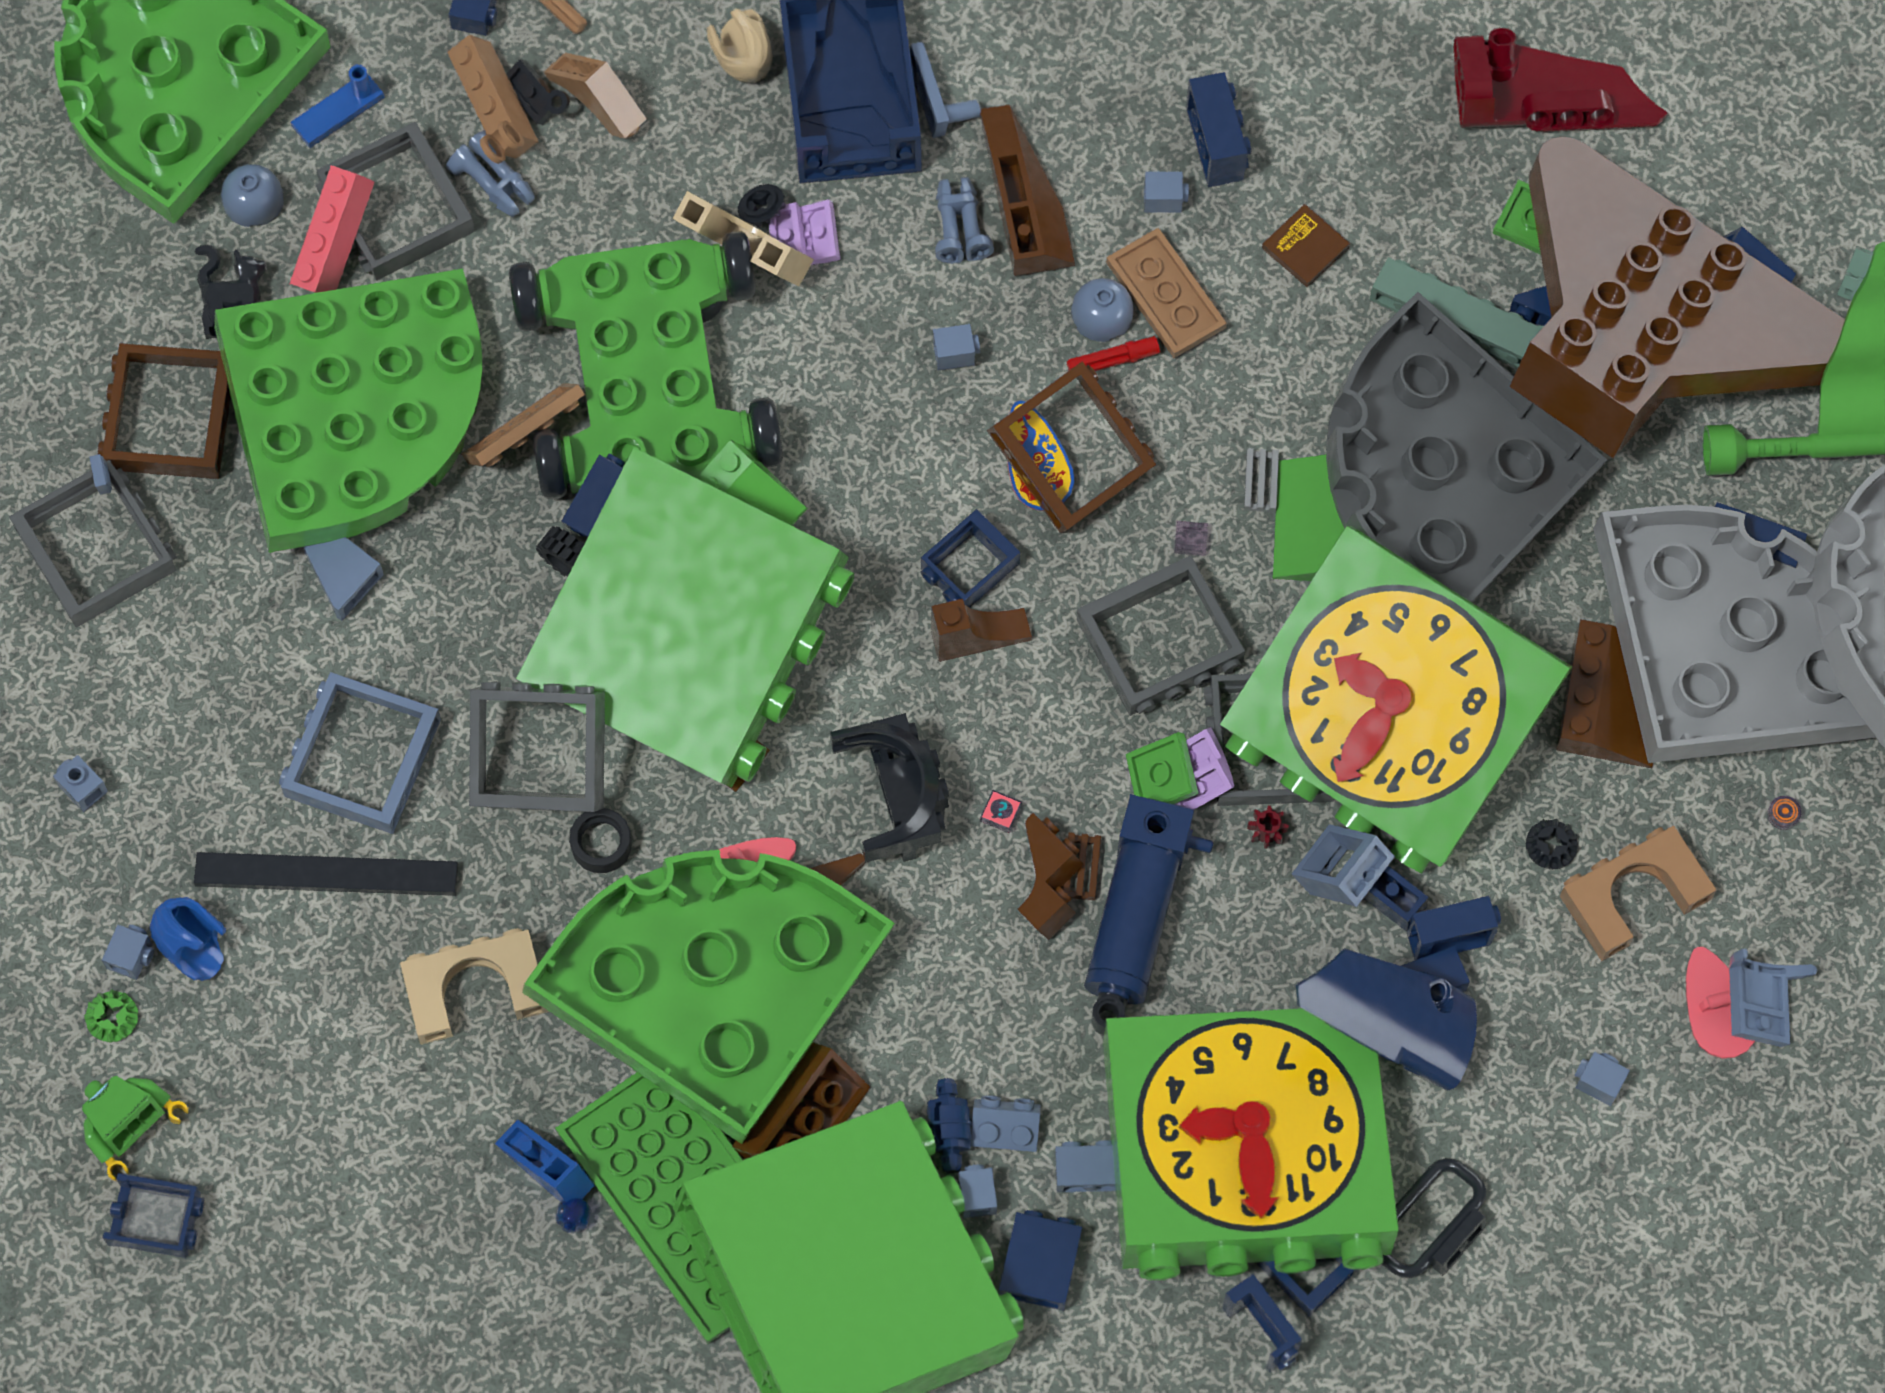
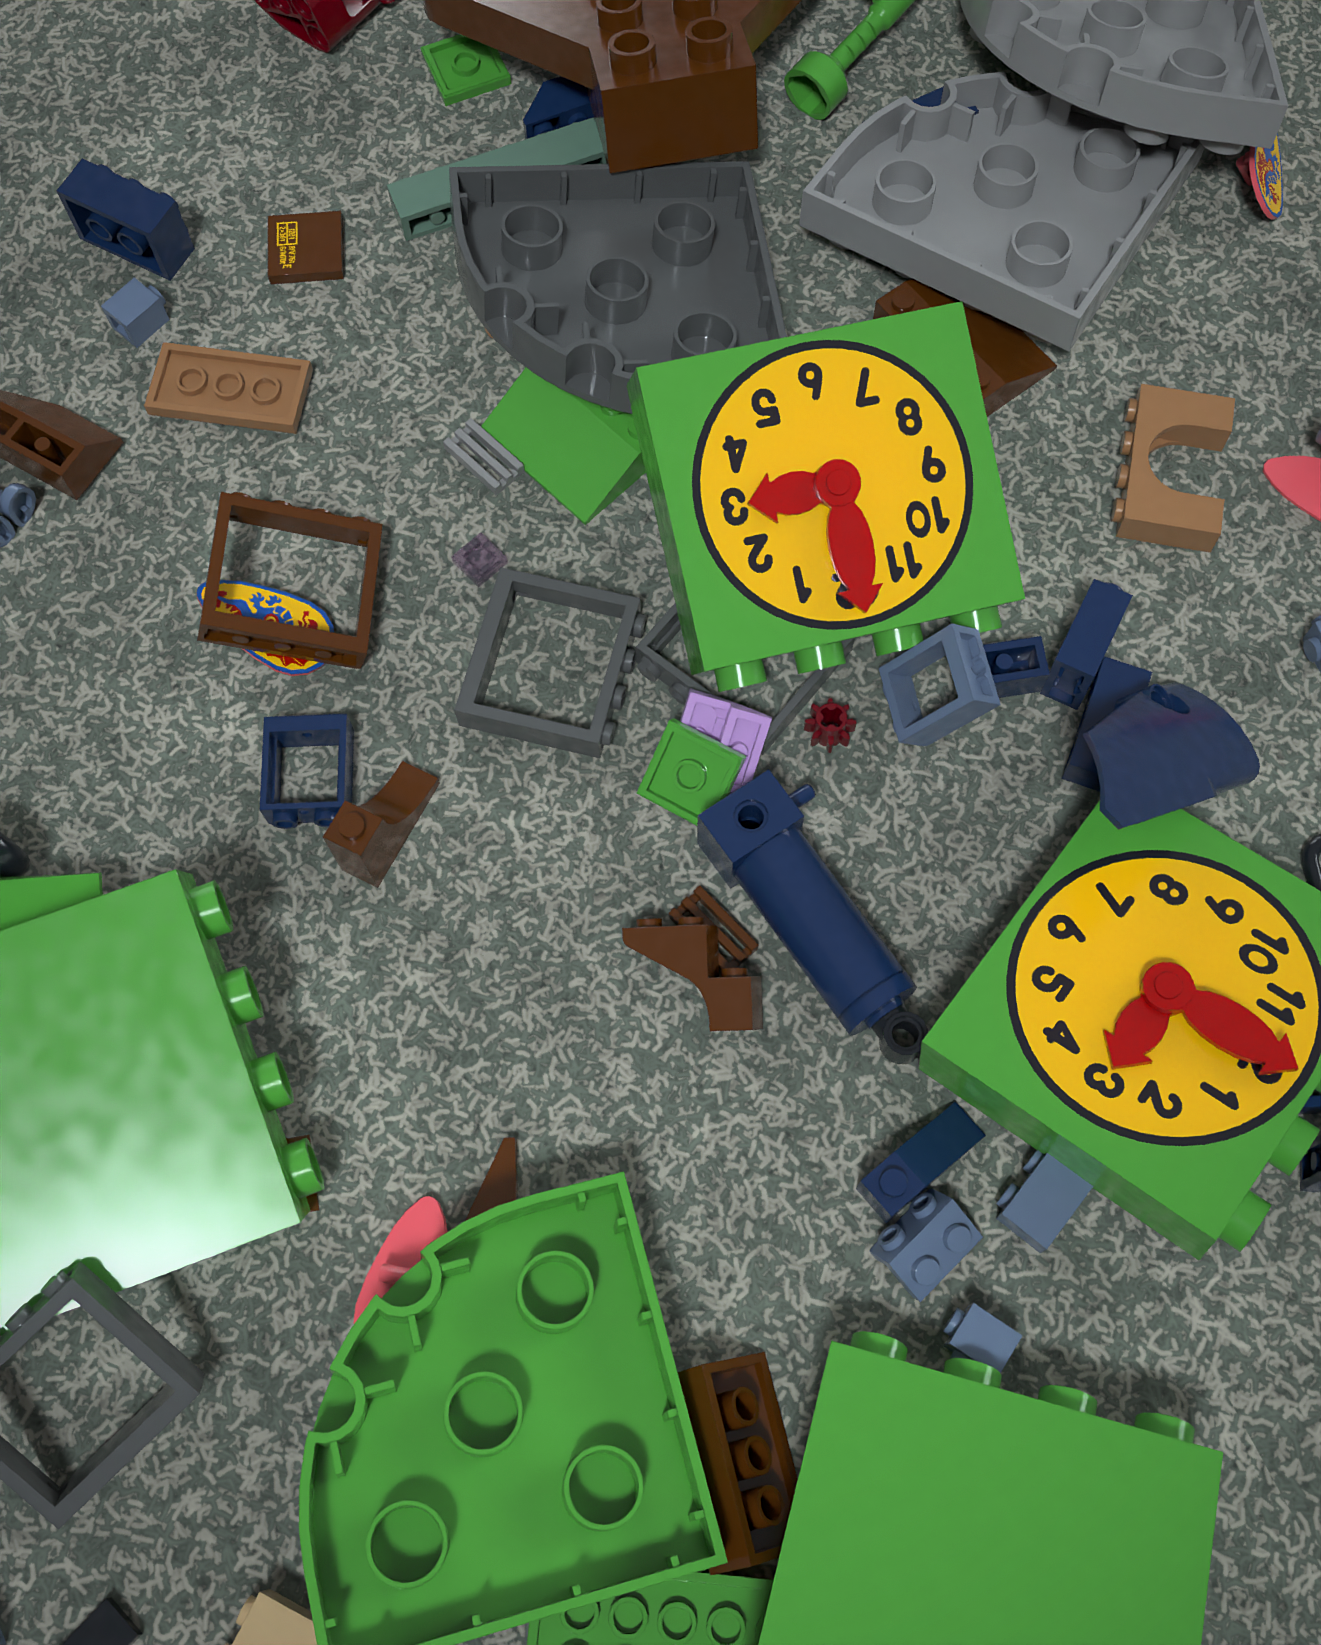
camera: 45 degrees left, 0 degrees up
(608, 863) = (271, 1417): black tyre -> none
(909, 785) = (478, 1025): black piece -> none
(949, 1124) = (883, 1305): dark blue piece -> none
(955, 347) = (87, 603): sand blue brick -> none
(1001, 811) = (586, 959): tile -> none
(1040, 1259) = (1114, 1337): dark blue panel -> none
(1048, 1084) = (919, 1162): none -> dark blue slope
(1102, 309) = (187, 451): sand blue cylinder -> none
(1128, 352) = (250, 465): red axle -> none
(1539, 851) = (1060, 515): black gear -> none
(1784, 812) = (1193, 299): tile -> none

